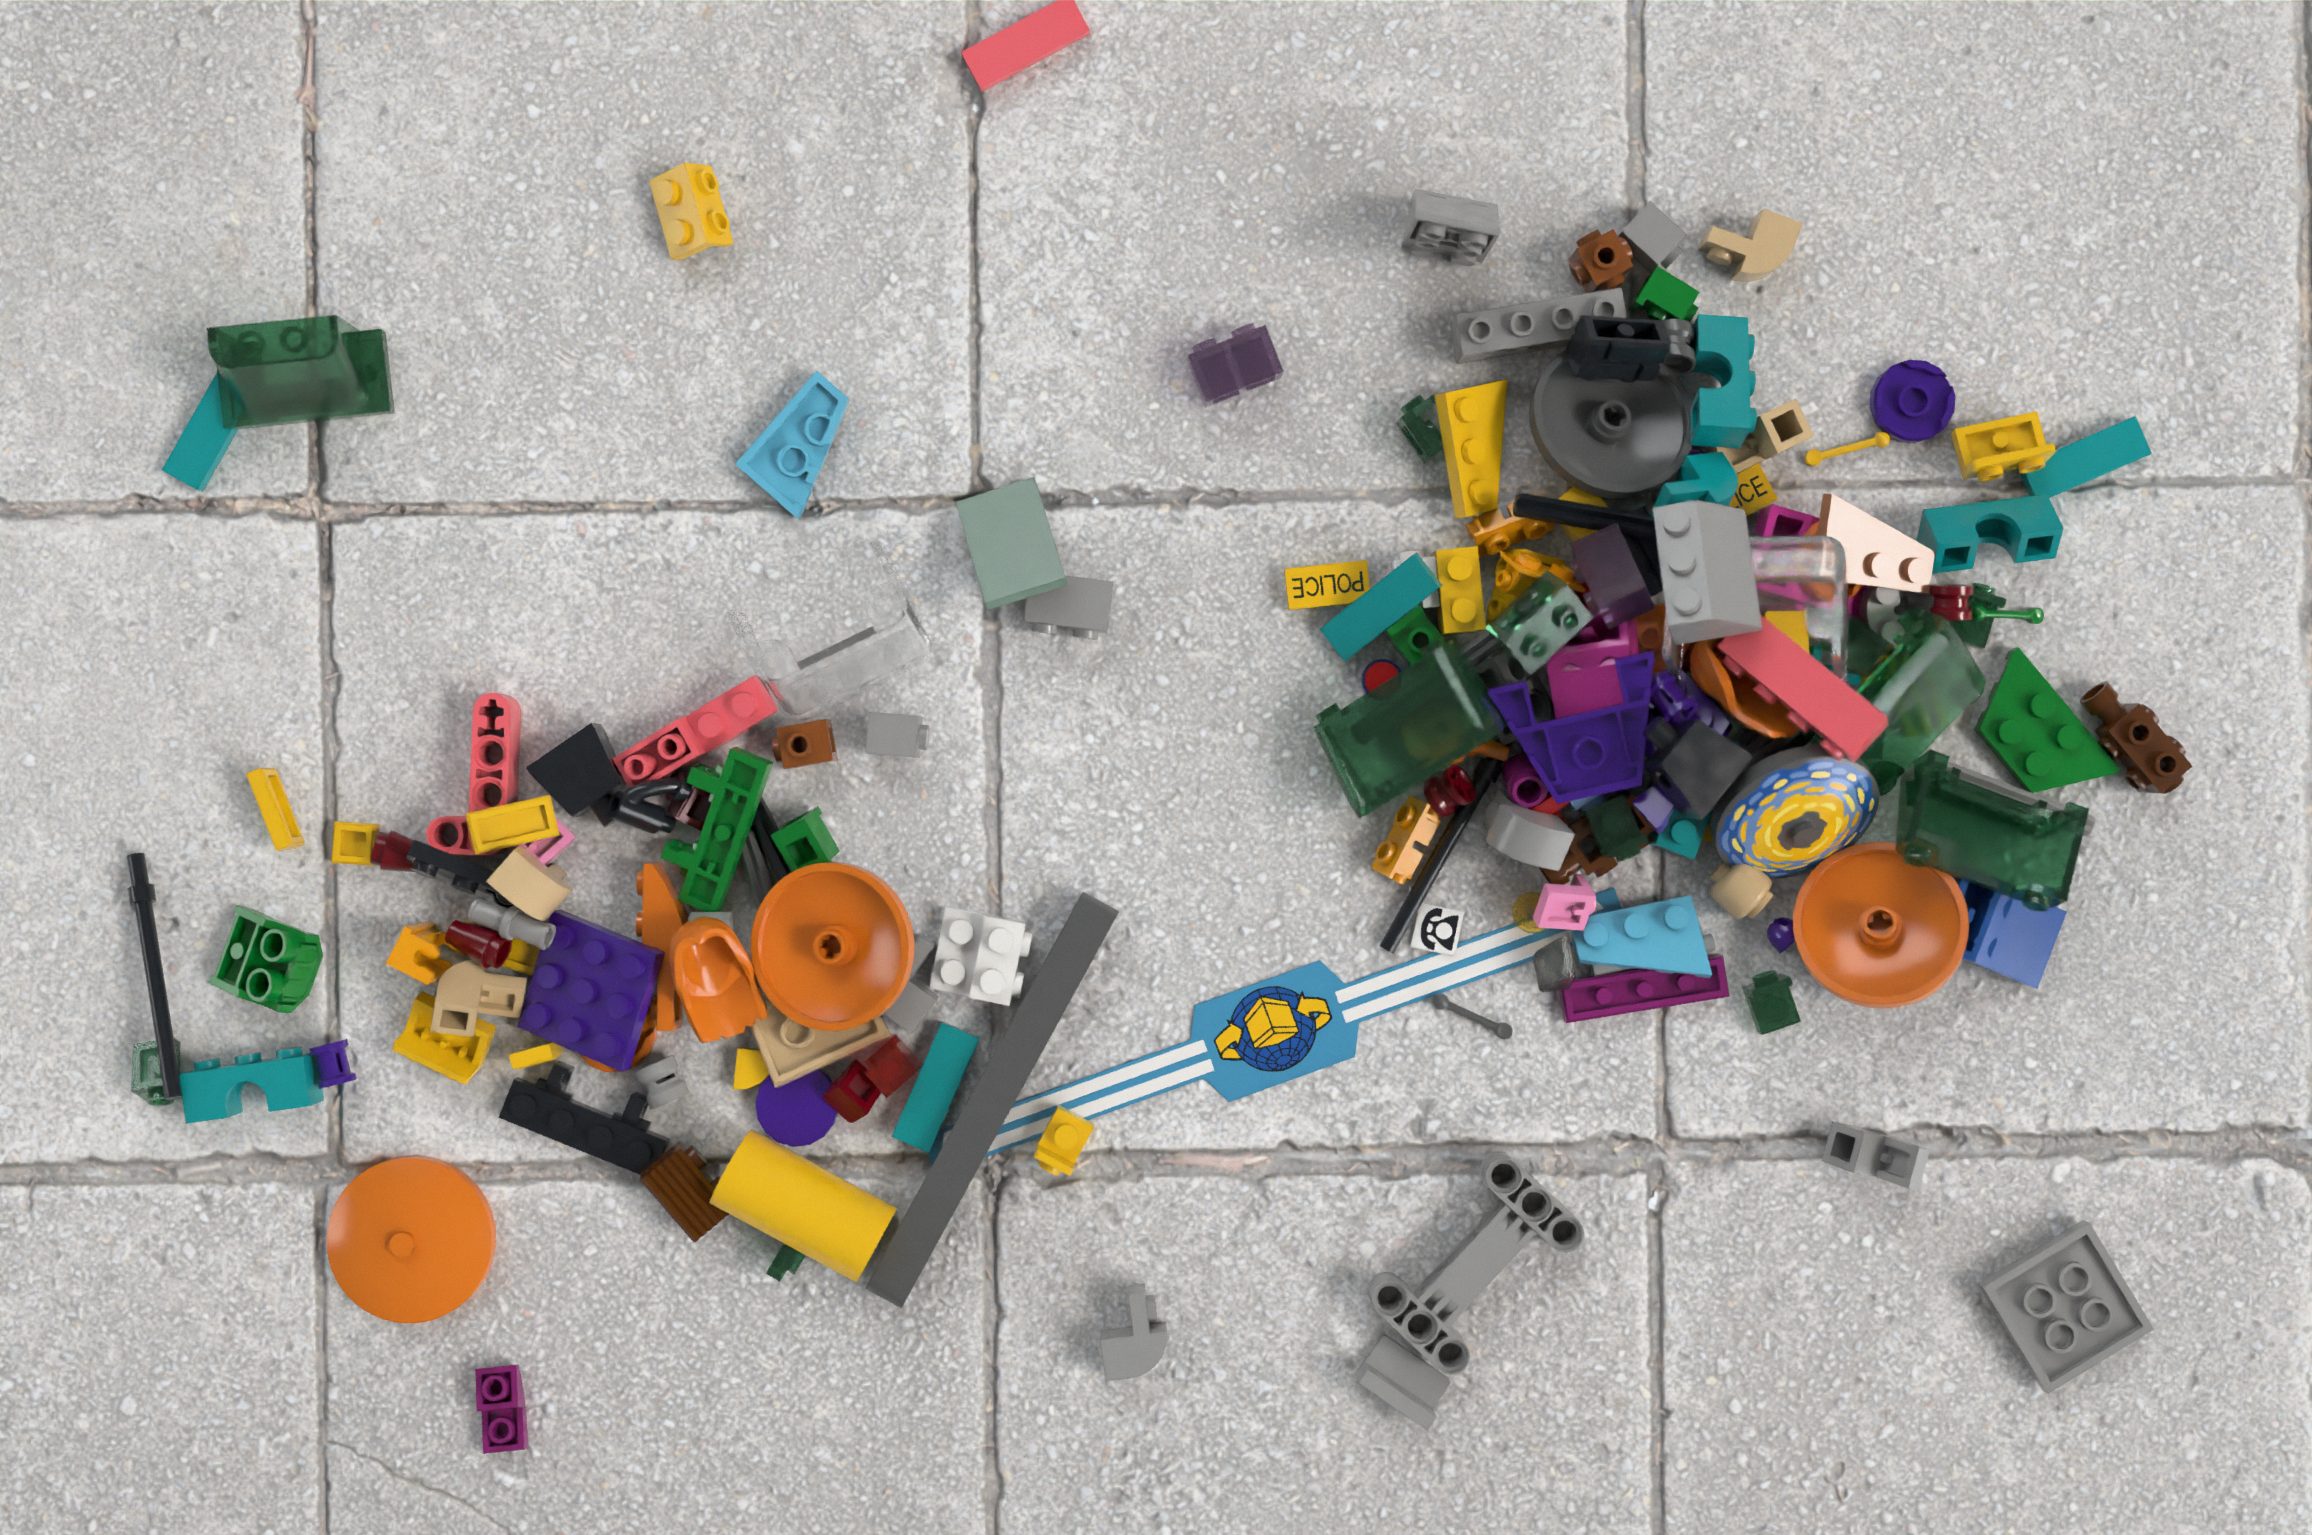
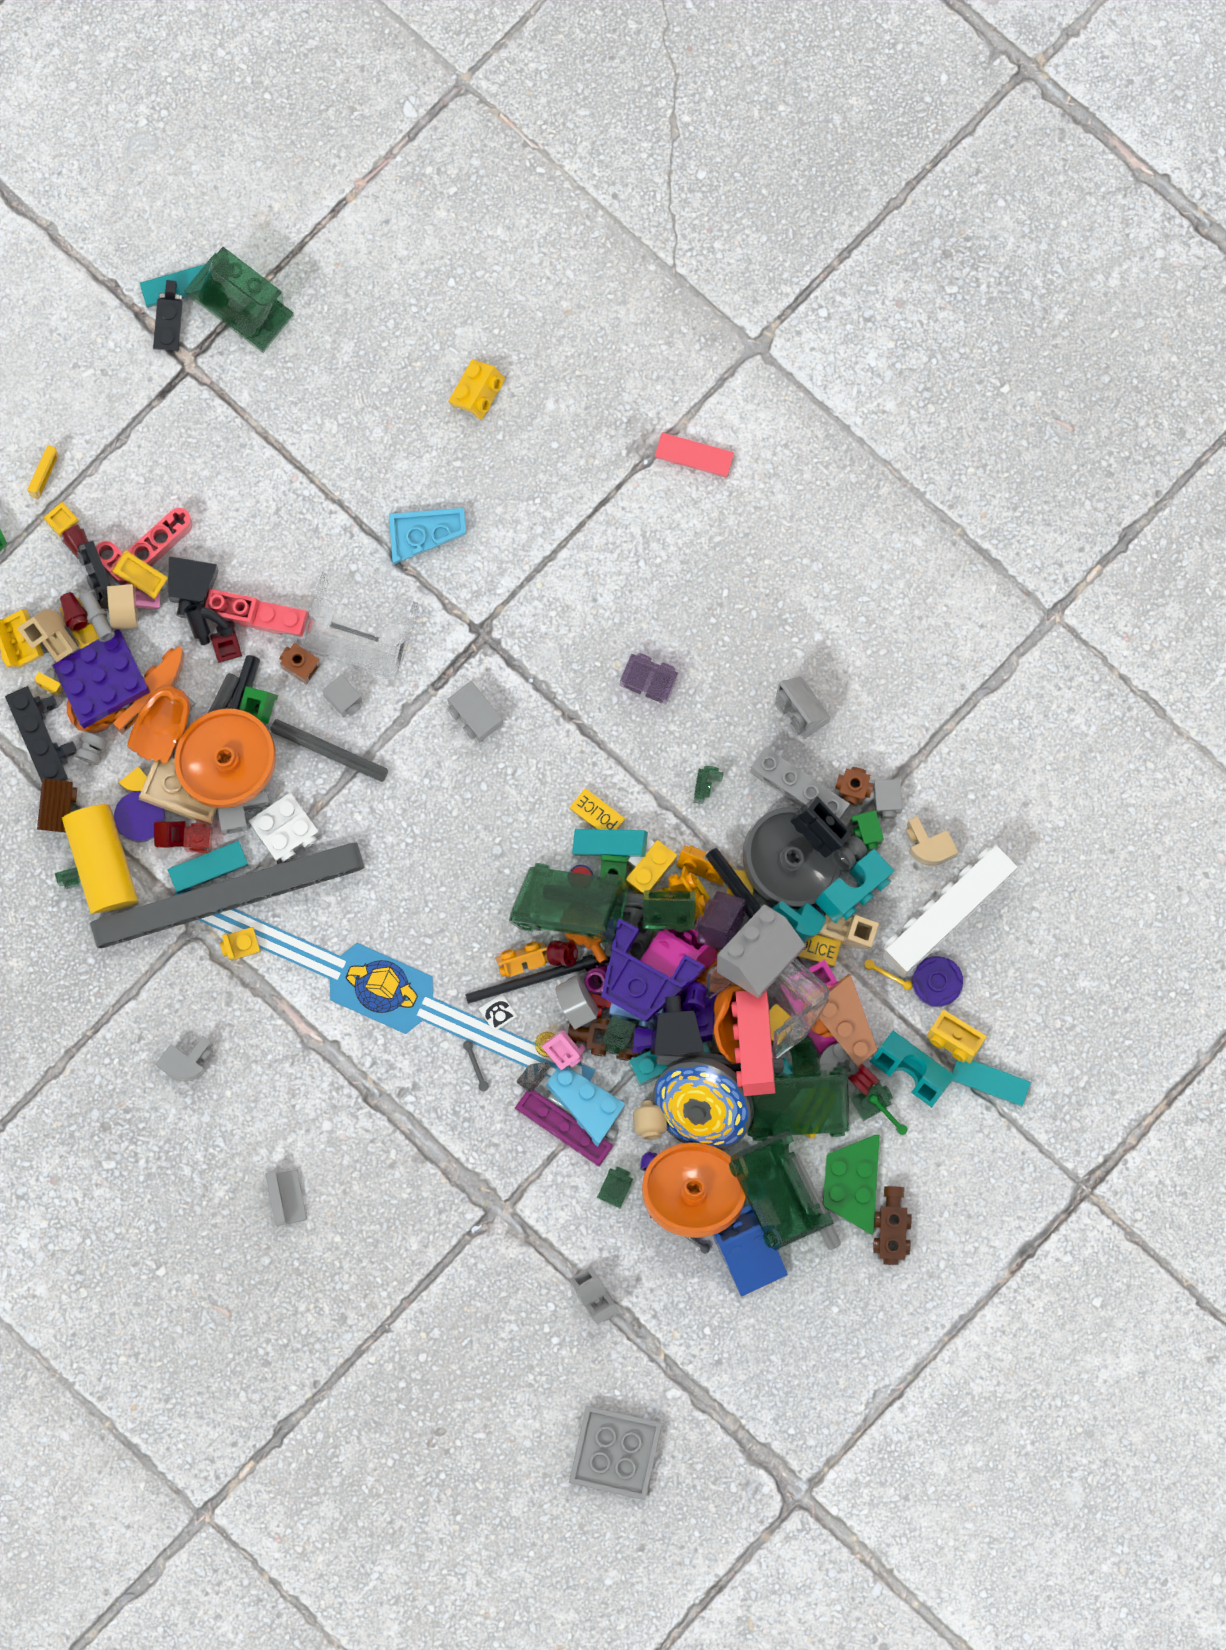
camera: 45 degrees right, 10 degrees down
(239, 480) = (168, 319): none -> black hinge
(419, 953) = (45, 590): light orange hinge -> none
(713, 858) = (211, 673): green hinge -> none
(941, 813) = (329, 750): none -> dark grey axle
(1011, 543) = (475, 661): sand green tile -> none
(1472, 444) = (720, 812): yellow wing -> none
(1474, 1263) = (369, 1173): light grey beam -> none
(1859, 303) = (953, 908): none -> white brick

